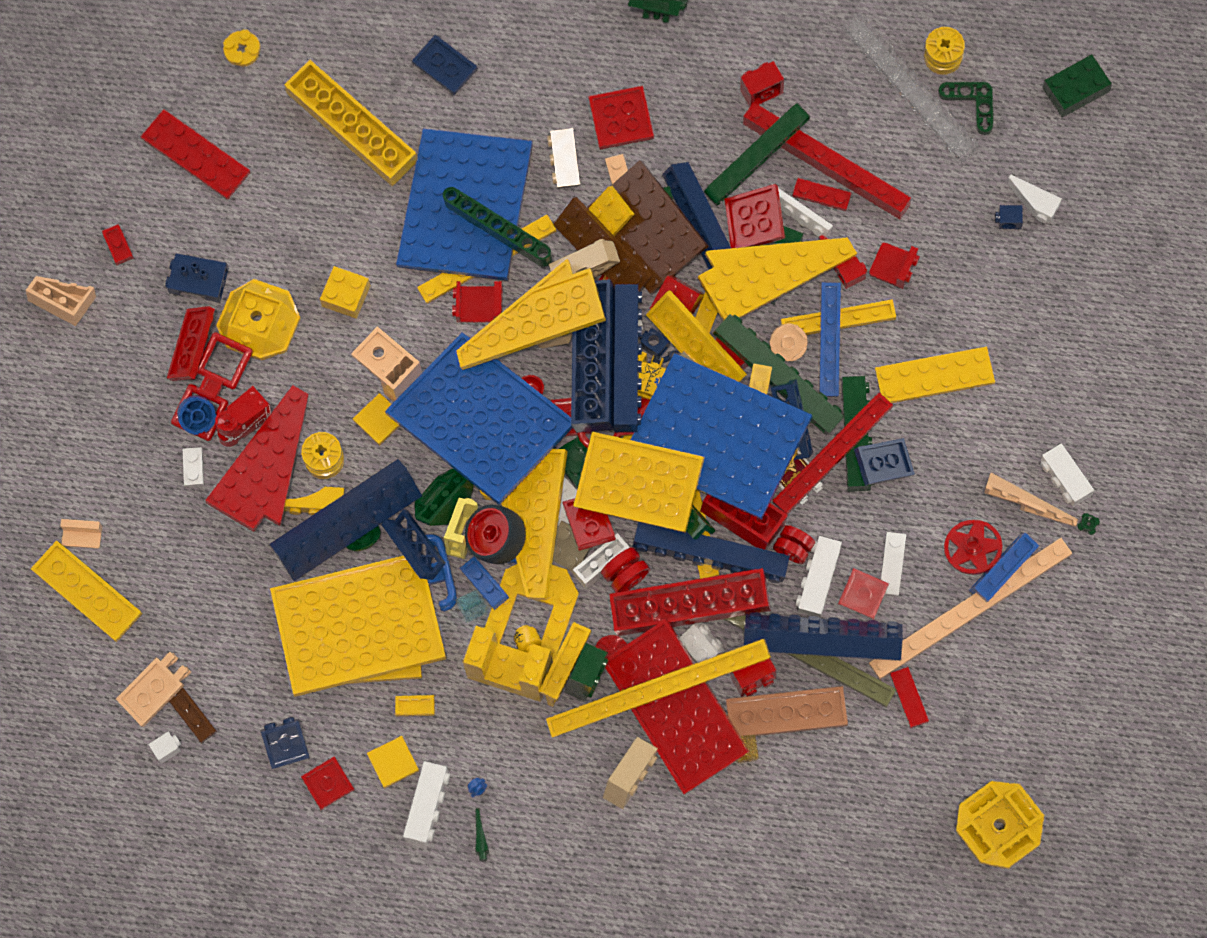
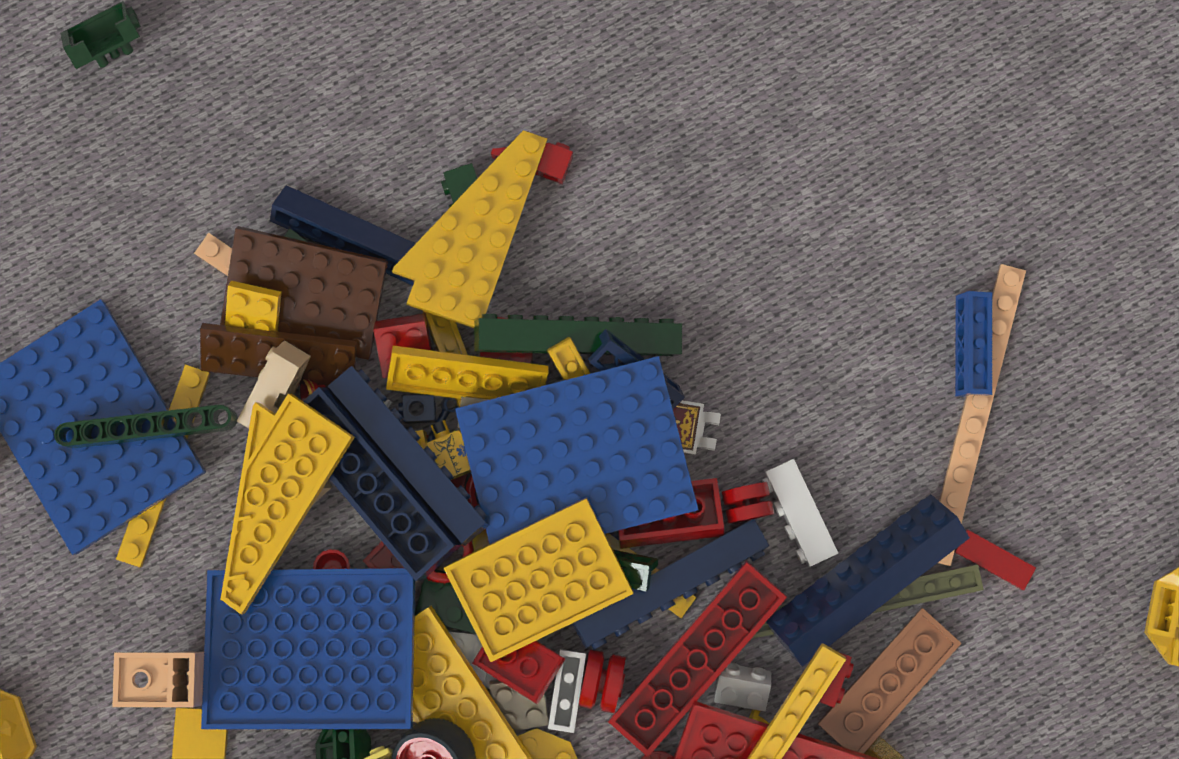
camera: 45 degrees left, 10 degrees up
(345, 292) = (43, 631): yellow brick -> none
(477, 303) = (195, 521): red panel -> none
(563, 158) = (151, 290): wedge -> none
(621, 117) = (172, 194): red plate -> none
(755, 217) = (407, 188): plate -> none
(757, 154) = (352, 117): dark green beam -> none
(762, 84) = (290, 37): red brick -> none
(788, 341) = (555, 291): light nougat tile -> none
(804, 215) = (445, 143): white plate -> none
(821, 194) = (452, 104): red plate -> none
(830, 339) = (596, 253): blue plate -> none
(832, 453) = (706, 373): red plate -> none
(833, 164) = (426, 64): red brick -> none
(849, 317) = (583, 223): yellow plate -> none
(854, 400) = (707, 329): dark green brick -> none
(863, 593) = (858, 491): tile -> none
(884, 461) = (763, 337): dark blue plate -> none
(893, 561) = (860, 435): white slope -> none
(894, 264) = (591, 117): red bracket -> none
(935, 375) = (731, 200): yellow plate -> none
(973, 546) = (924, 348): red wheel -> none
(1029, 503) = (913, 261): light nougat wedge -> none
(1066, 475) = (952, 194): white brick -> none
(1092, 520) = (1020, 221): dark green plate -> none

